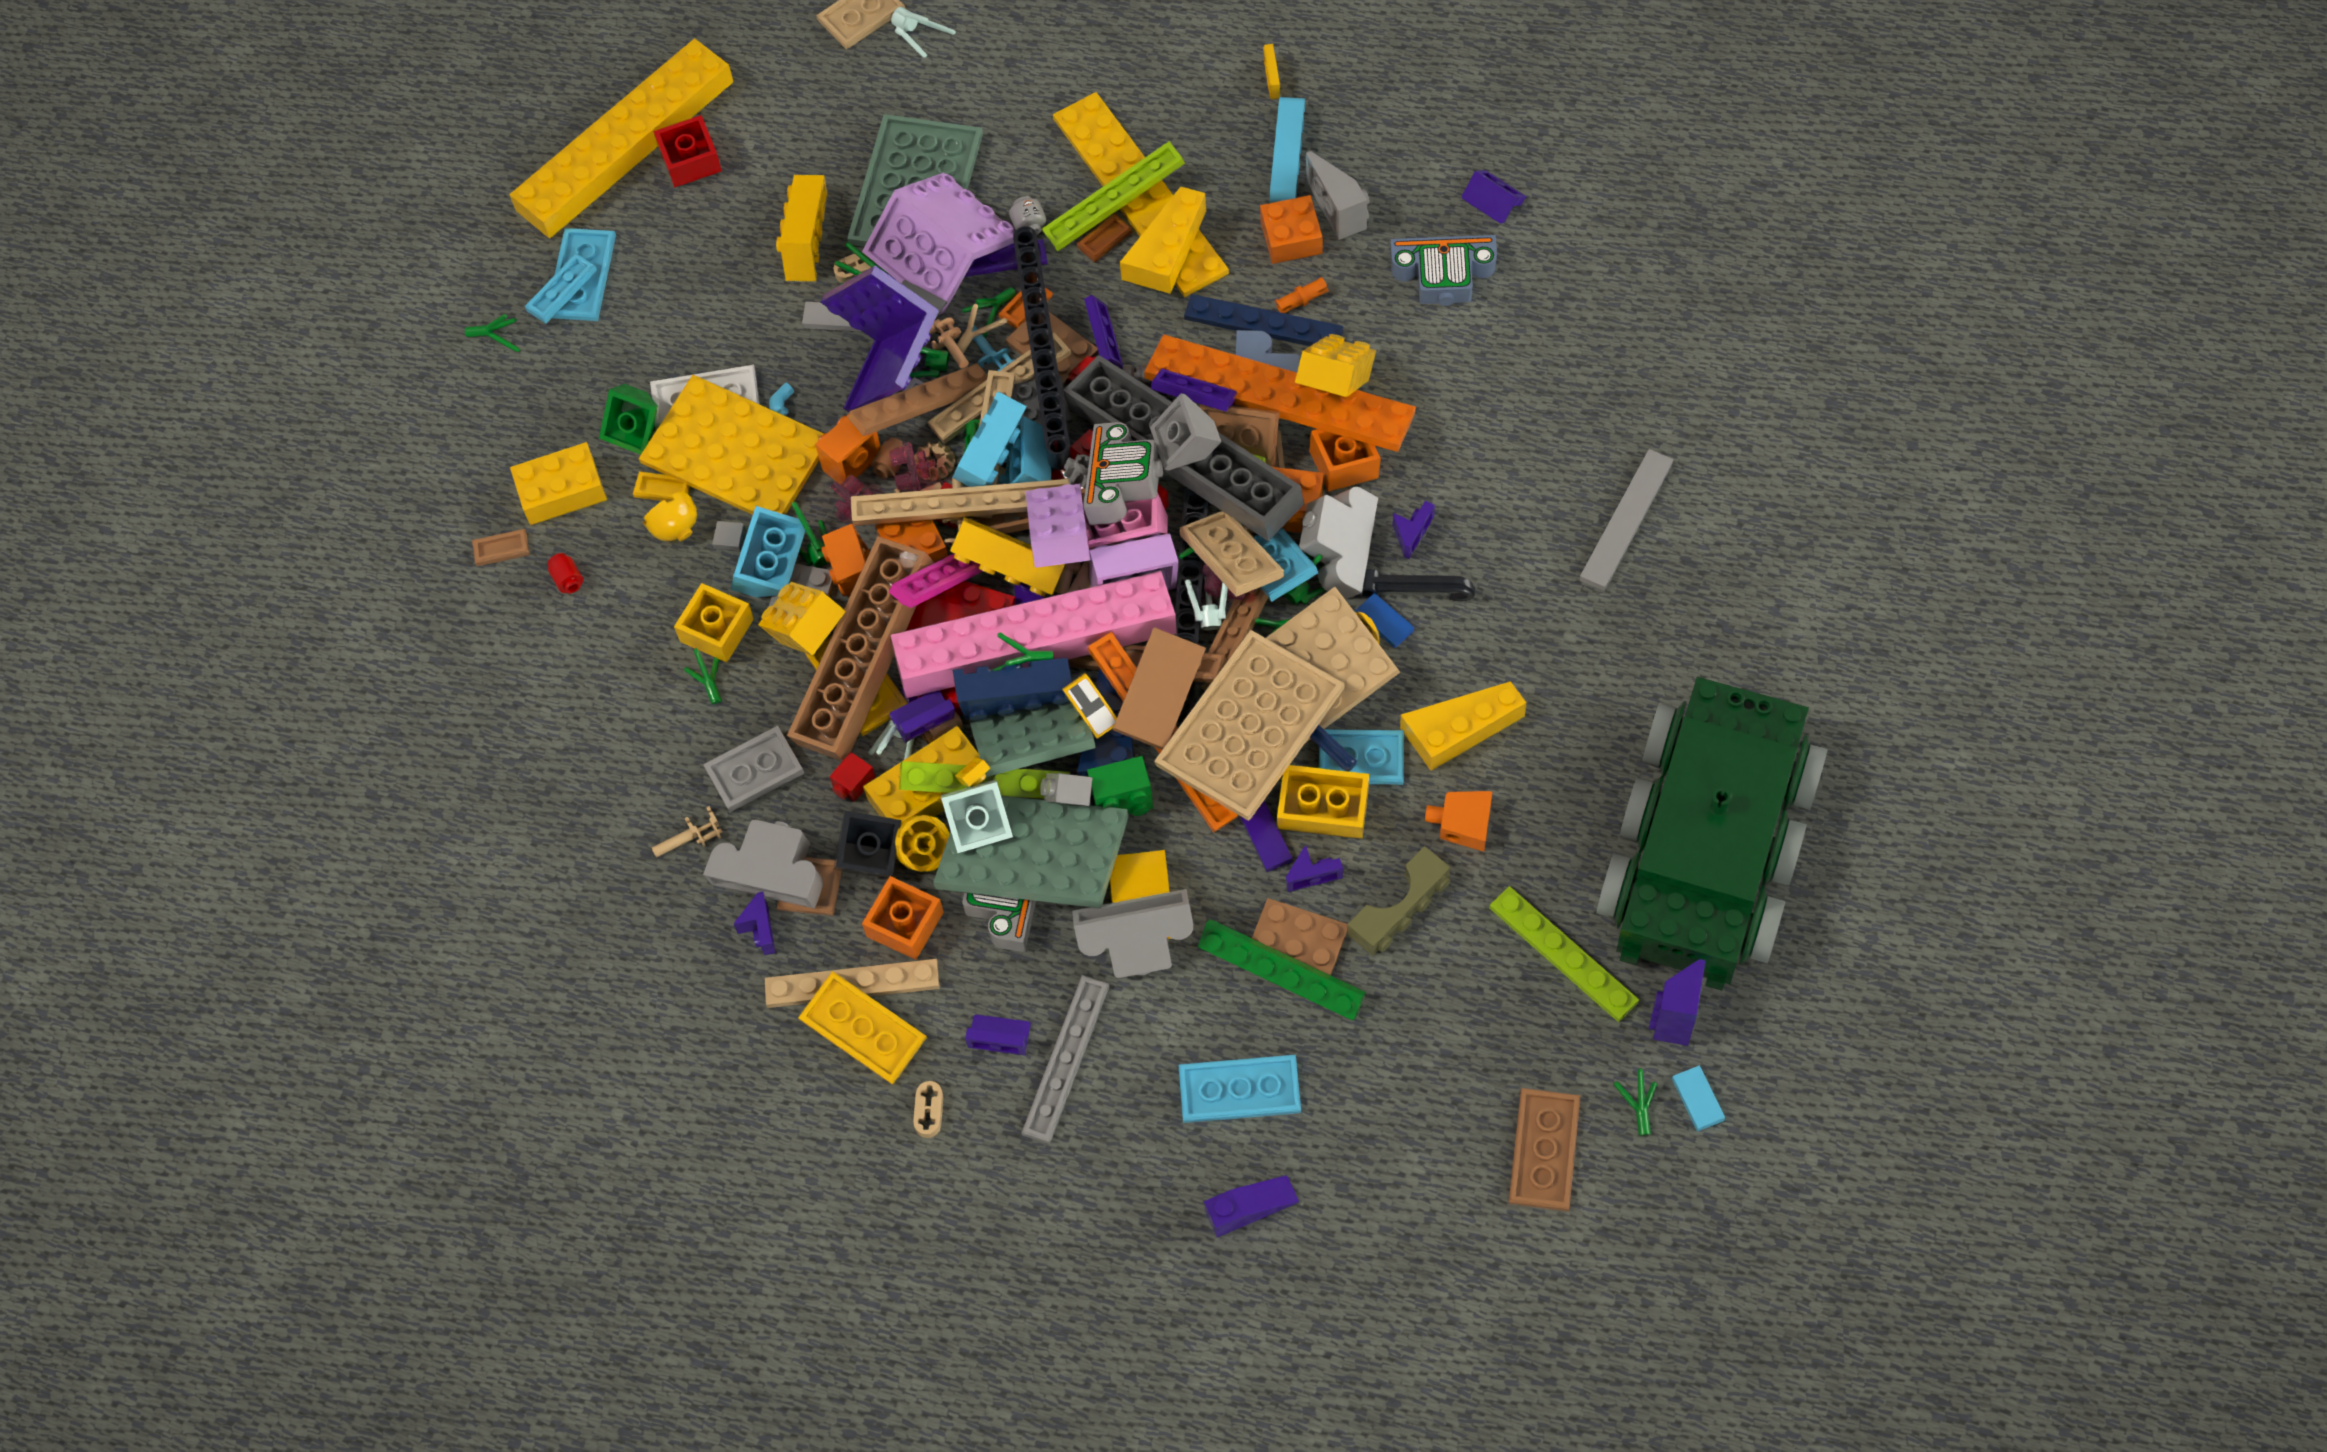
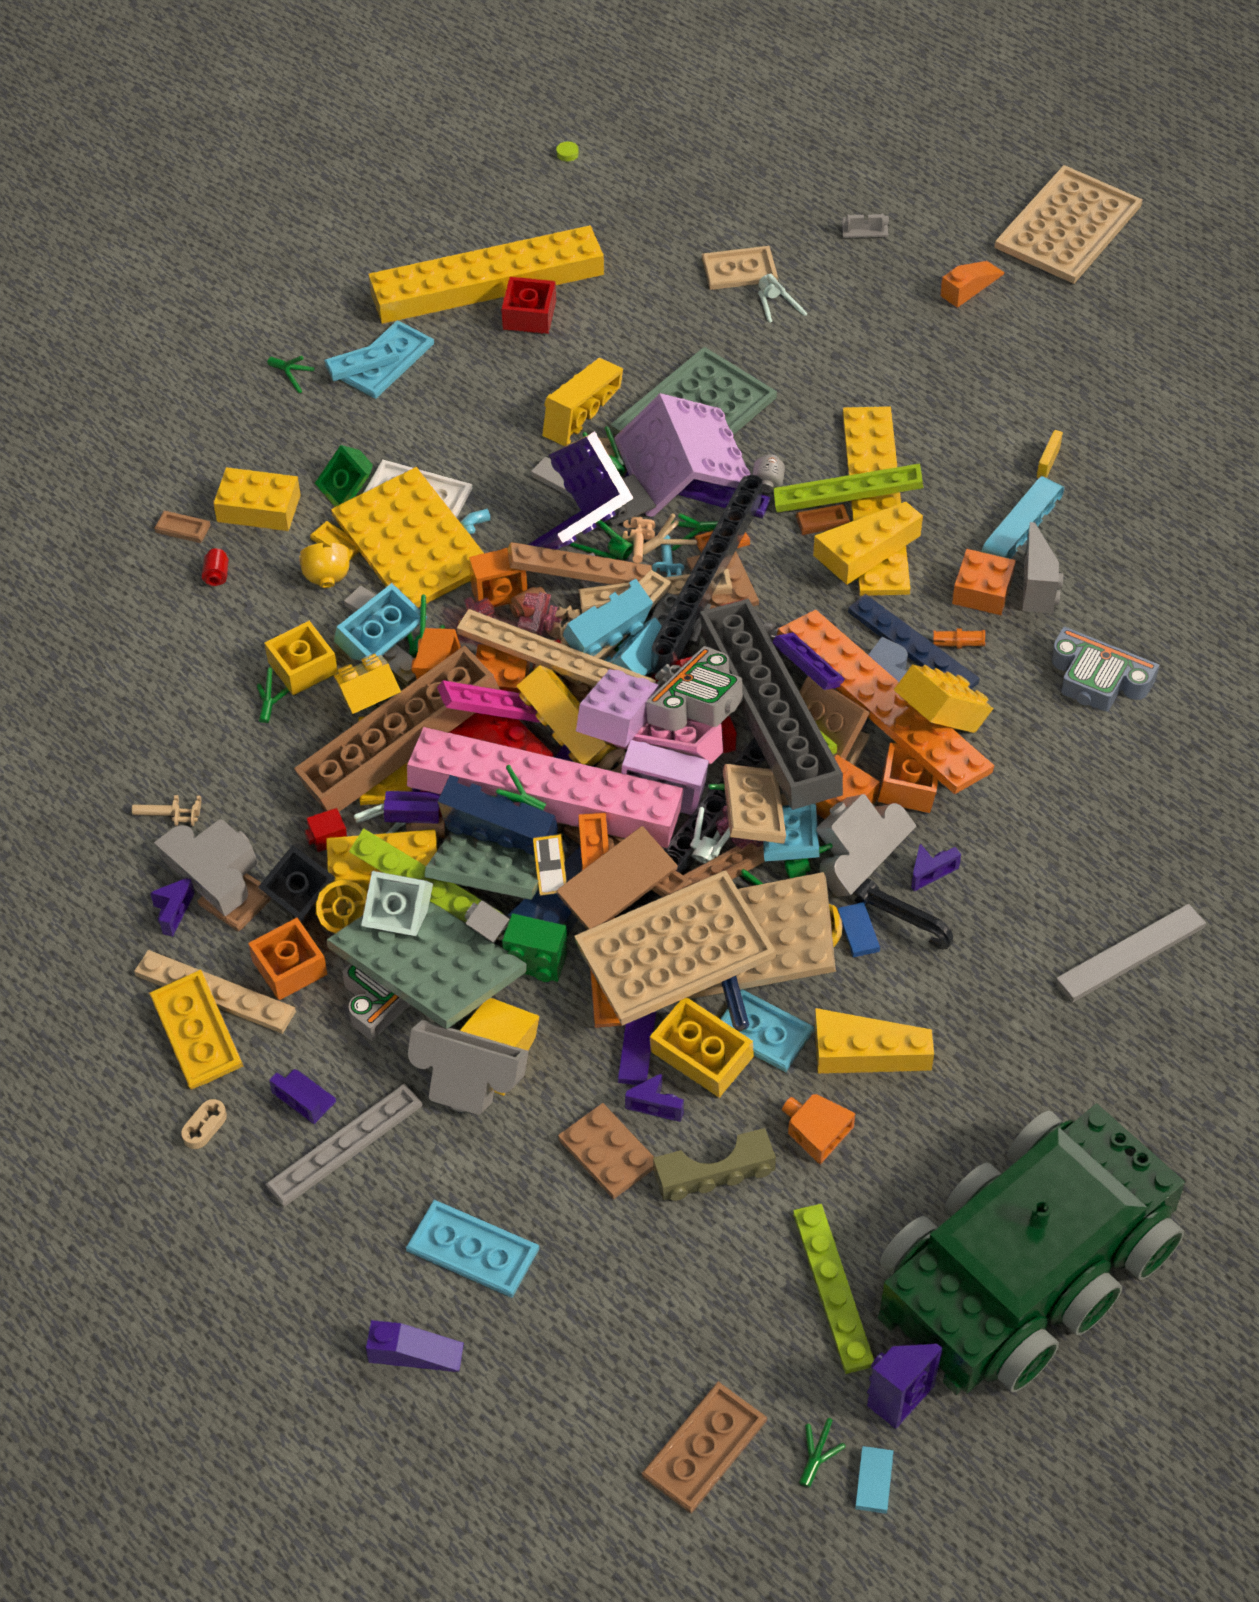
camera: 25 degrees right, 10 degrees down
(753, 769) = (254, 785): light grey plate -> none
(973, 773) = (415, 867): yellow plate -> none
(1103, 330) = (770, 588): dark purple tile -> none
(1184, 434) = (772, 686): light grey slope -> none
(1281, 969) = (574, 1168): green plate -> none
(1492, 195) = (1180, 635): dark purple panel -> none

